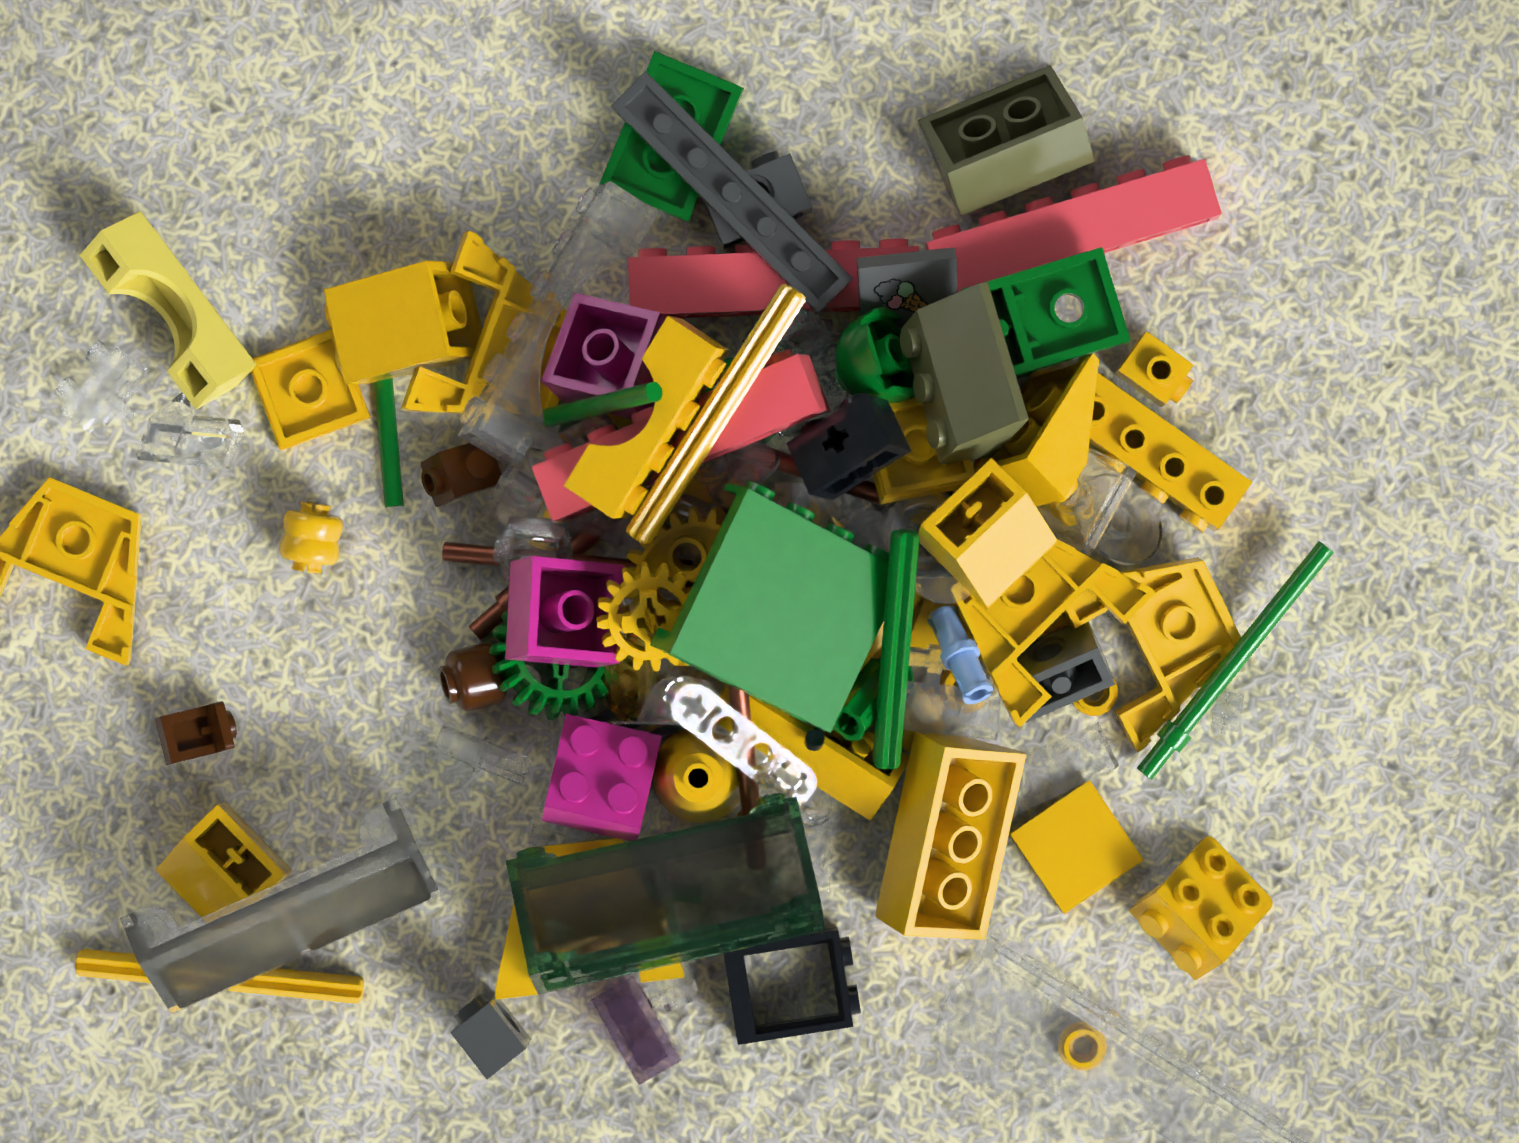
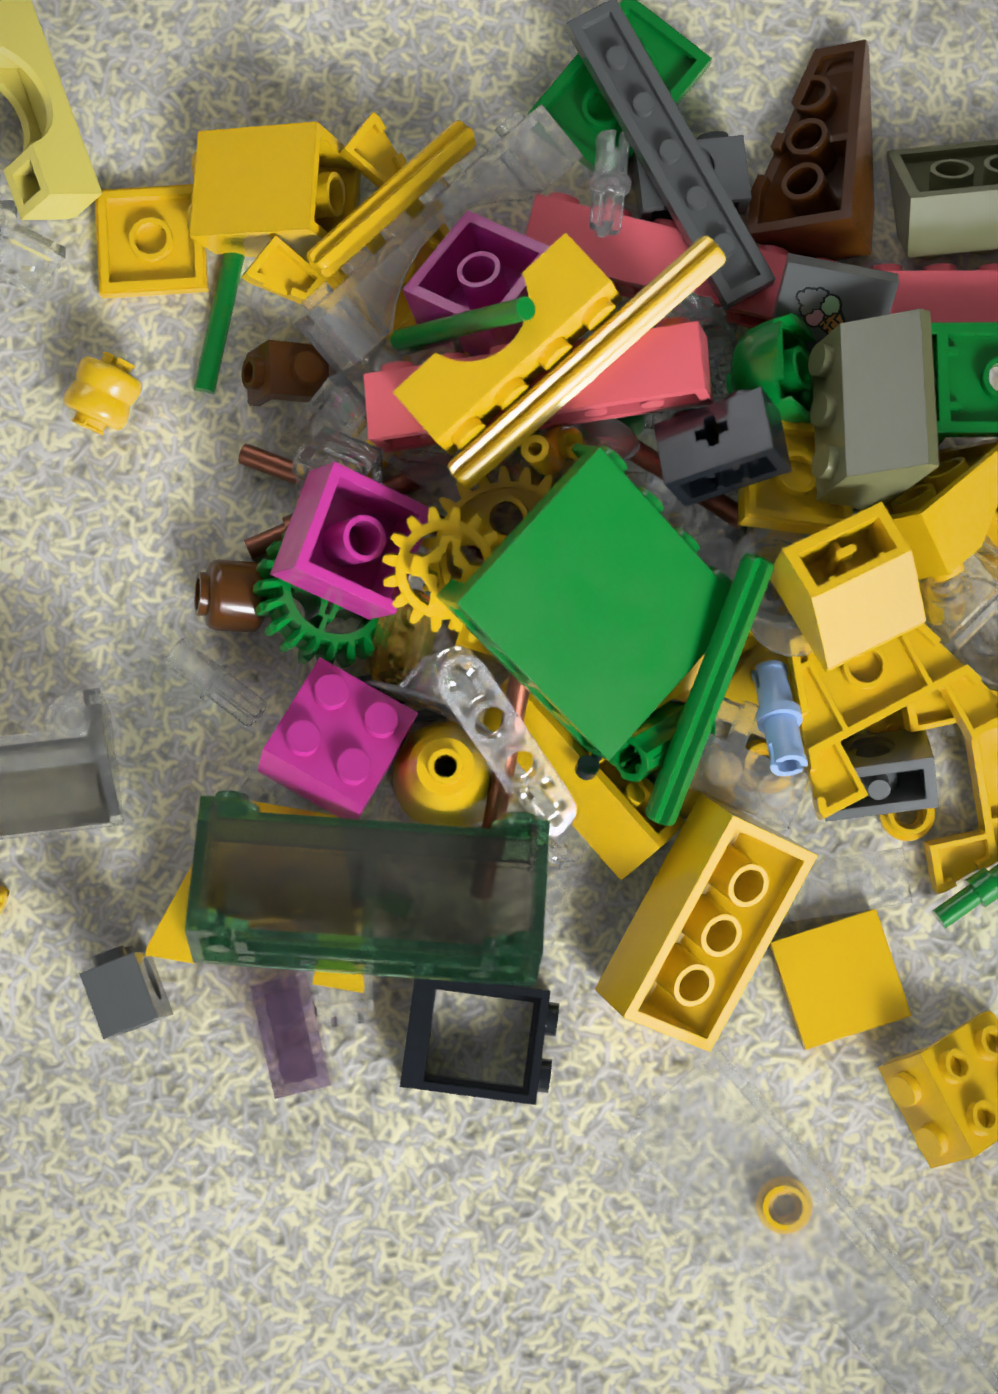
camera: 15 degrees right, 5 degrees down
(507, 302) = (391, 199): none -> yellow axle
(688, 233) = (609, 183): none -> clear axle
(707, 487) = (549, 452): none -> yellow arm
(866, 165) = (821, 174): none -> reddish brown wedge

